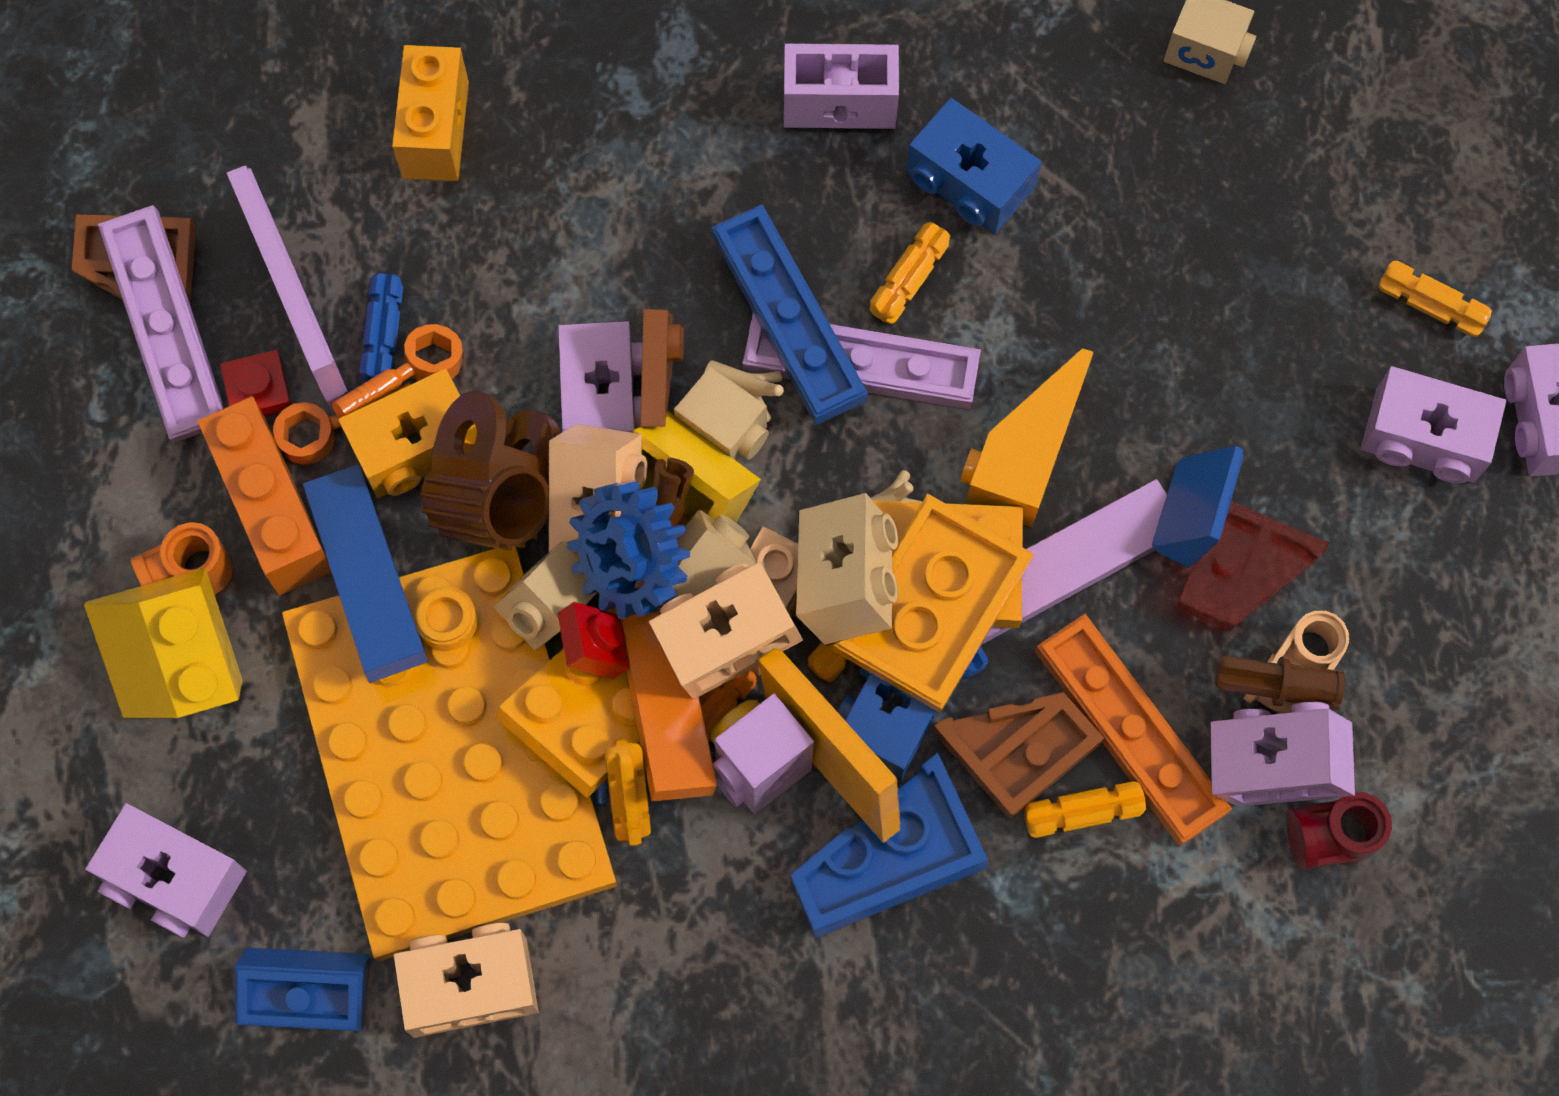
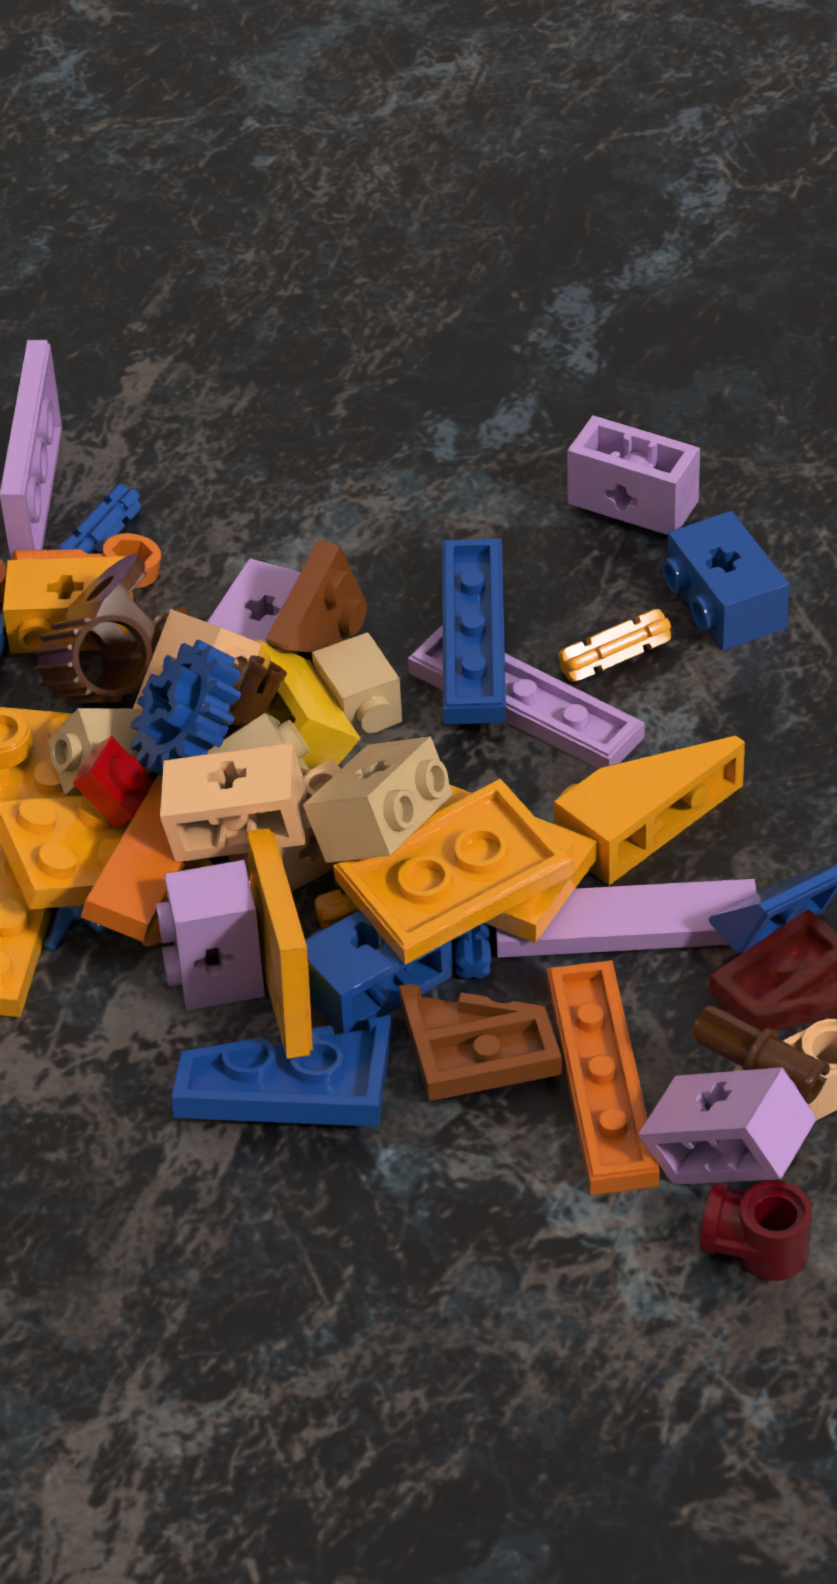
camera: 30 degrees right, 25 degrees down
(430, 113) = (246, 386): light orange brick -> none
(628, 791) = (67, 928): light orange axle -> none
(754, 383) = (409, 678): tan bar -> none
(1084, 809) = (509, 1118): light orange axle -> none

